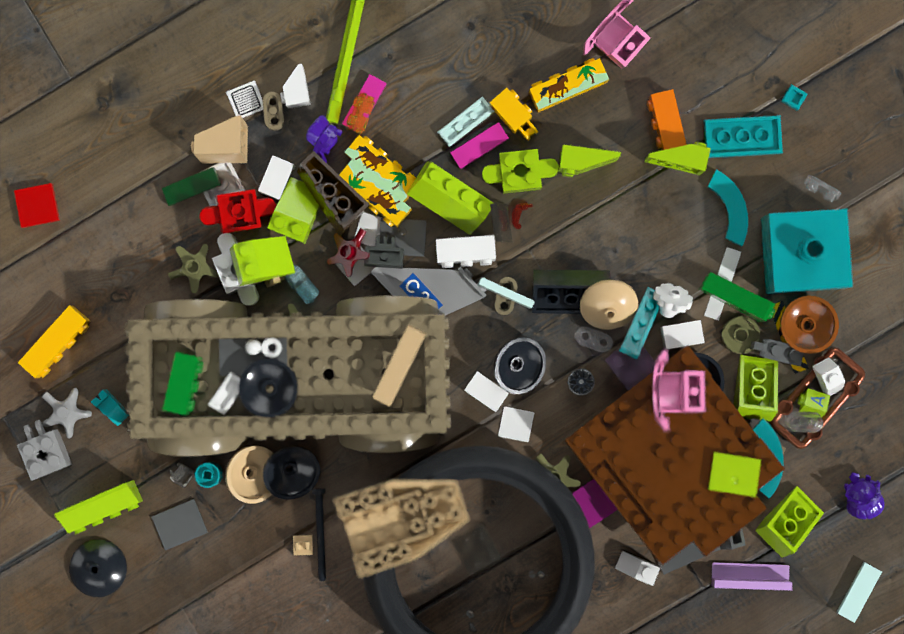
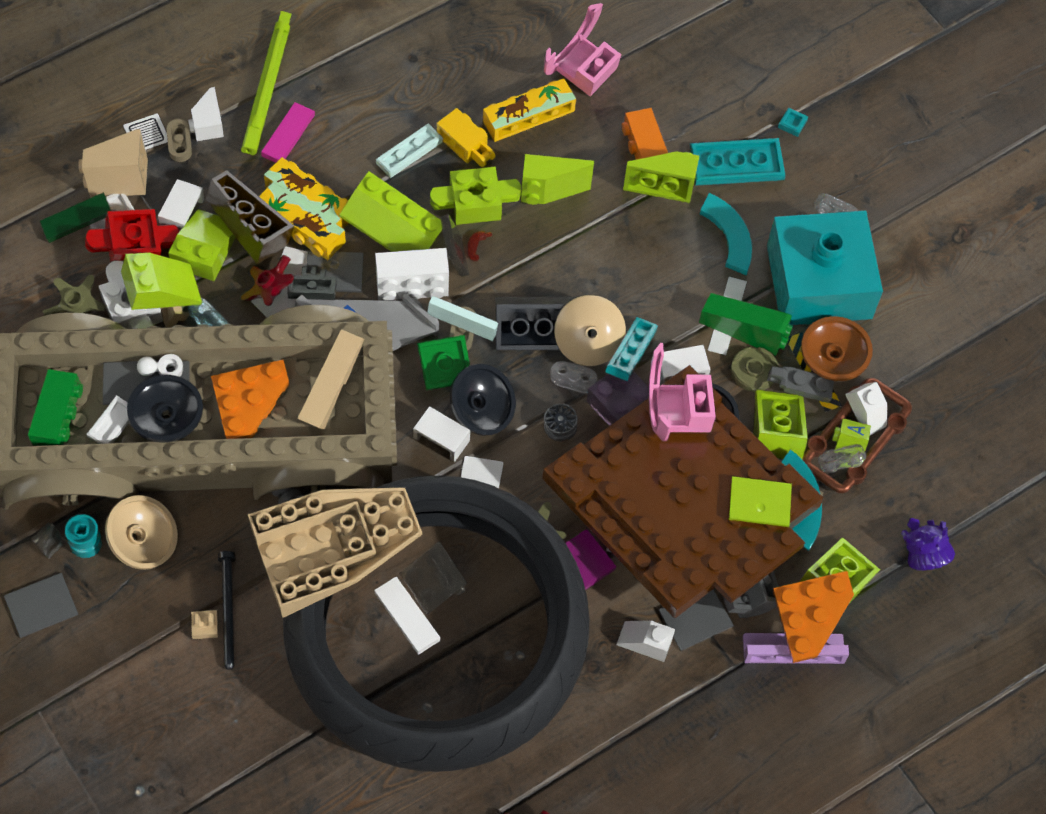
camera: 15 degrees left, 25 degrees down
(297, 479) = (208, 530): black dish -> none
(322, 136) = (239, 157): dark purple hair -> none
(333, 373) = (248, 396): none -> orange plate
(361, 105) = (286, 130): clear yellow hinge -> none
(455, 576) = (407, 615): none -> white tile
(479, 145) = (426, 173): dark pink tile -> none
(490, 327) = (442, 361): none -> green tile
(672, 299) = (666, 327): white plant -> none
(767, 560) = (811, 612): none -> orange plate
(859, 592) = (936, 664): light aqua tile -> none

